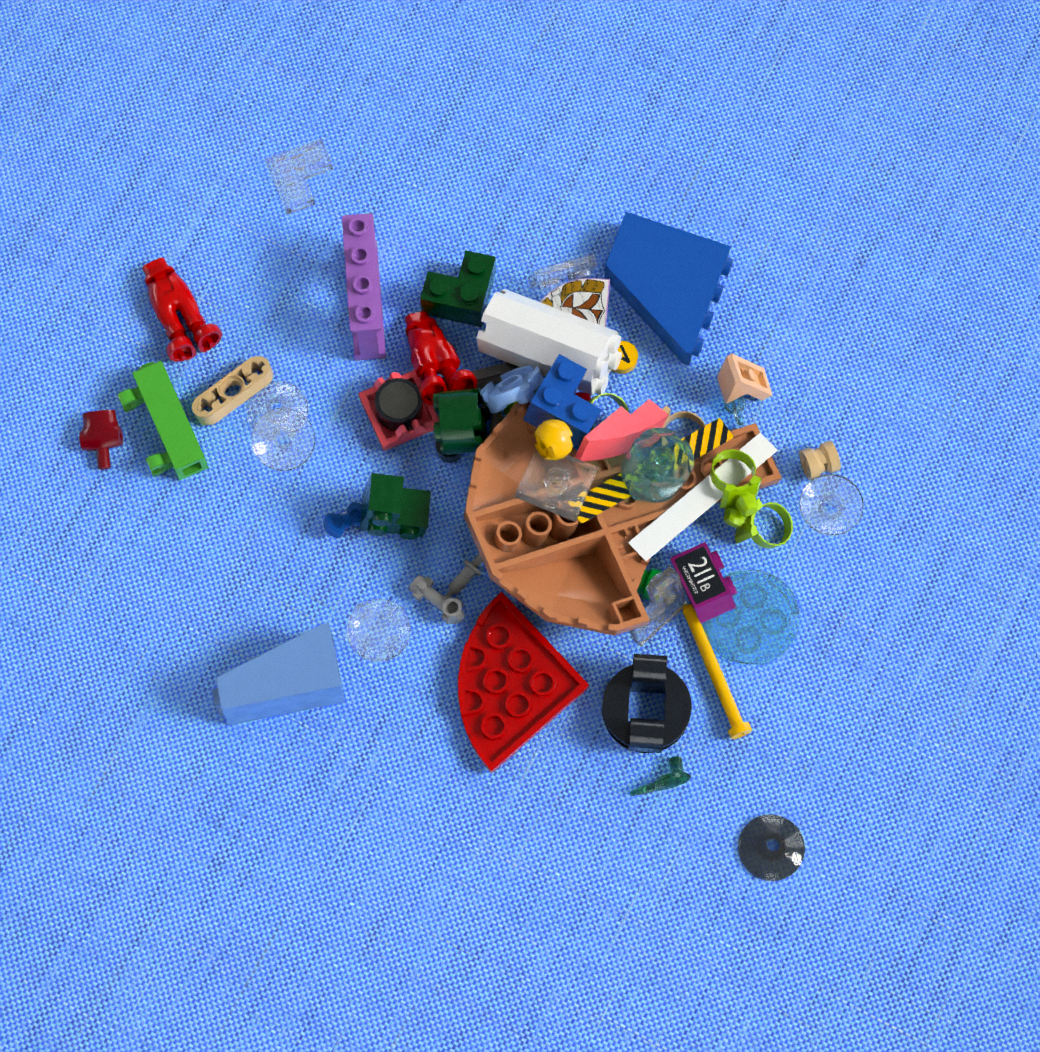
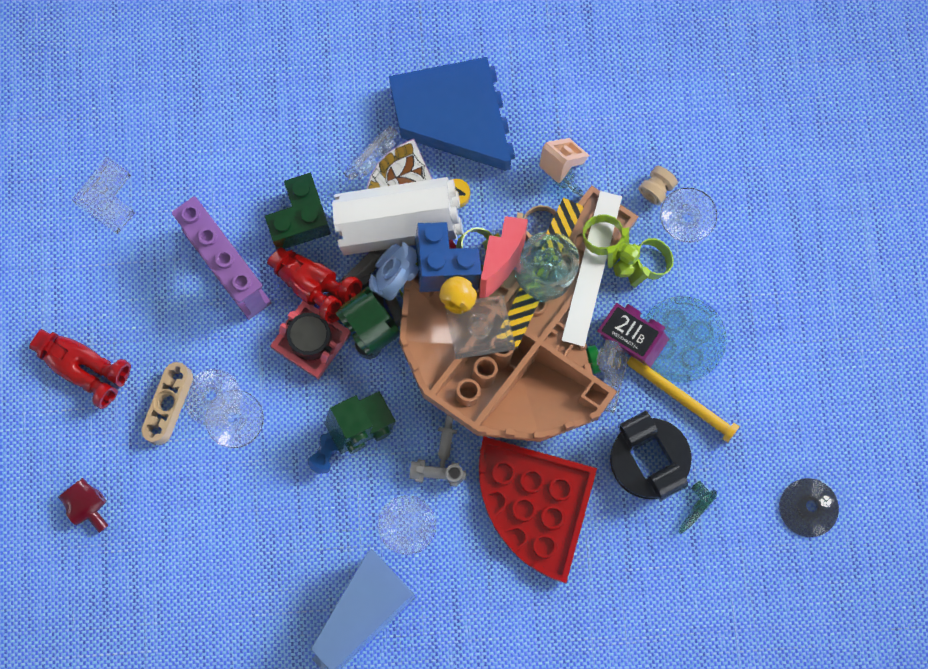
camera: 30 degrees left, 5 degrees up
(169, 419) = (132, 458): bright green brick -> none

